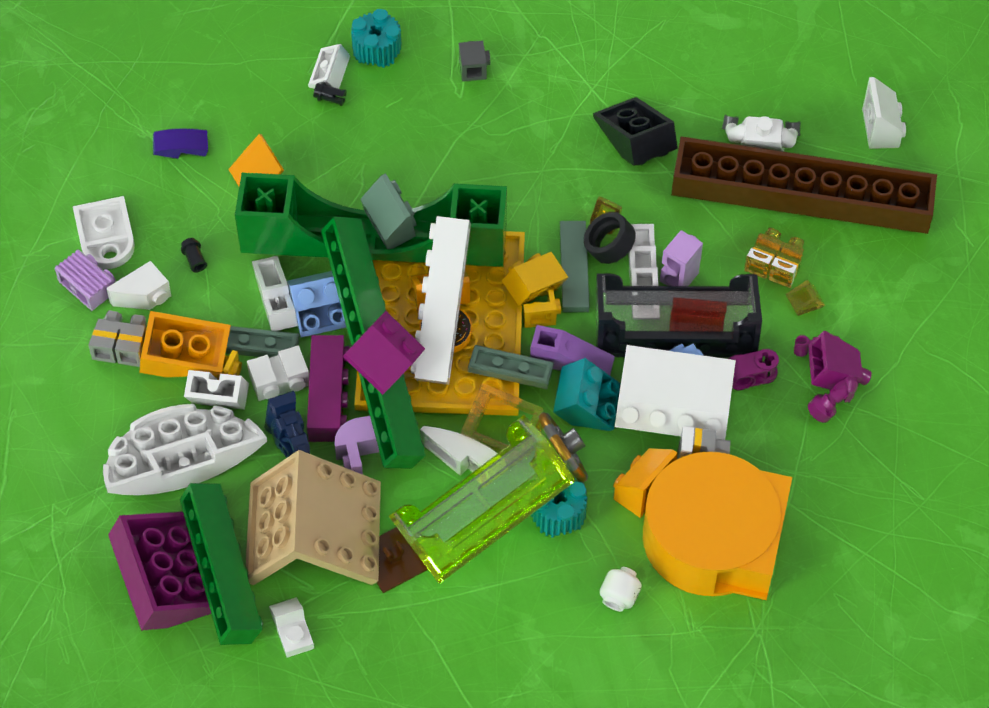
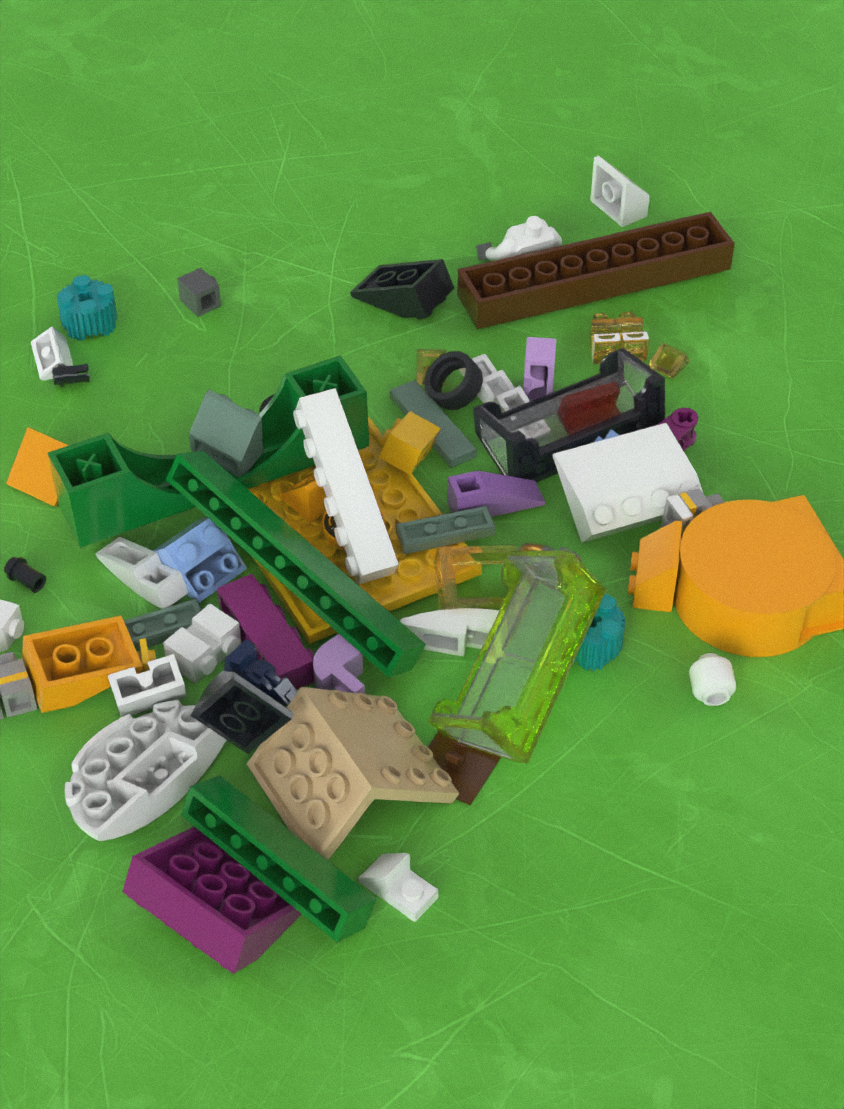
camera: 30 degrees left, 10 degrees down
(256, 443) = (240, 711): none -> black slope
(384, 352) = (323, 554): magenta slope -> none
(542, 312) = (435, 473): yellow bracket -> none
(587, 396) = (537, 520): teal slope -> none
(833, 367) = (750, 400): magenta torso -> none

